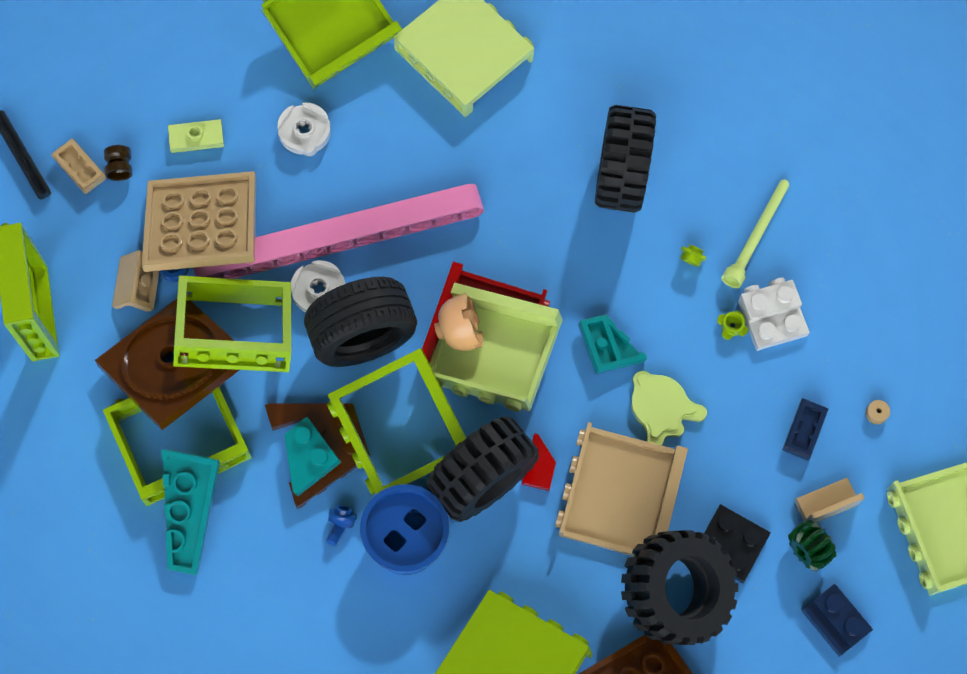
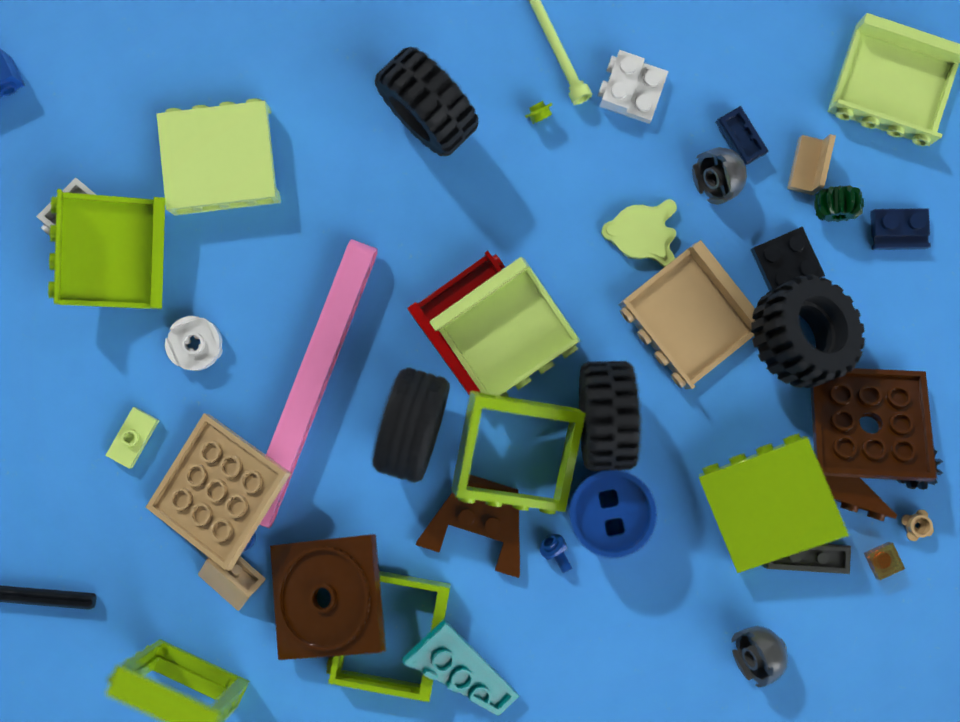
camera: 50 degrees left, 15 degrees up
(78, 166) = (88, 556): tan plate -> none
(118, 162) = (109, 521): dark brown wheel -> none
(233, 354) = (364, 553): lime window -> none
(308, 455) = (486, 540): teal wing -> none
(311, 275) = (331, 428): white plate -> none
(459, 324) = (470, 345): light nougat cylinder -> none
(542, 472) = (621, 354): red tile -> none
(607, 345) = (564, 236): teal wing -> none
(732, 317) = (617, 118): lime plate -> none
(758, 431) = (719, 174): none -> flat silver cylinder
(872, 415) = (766, 70): tan piece -> none

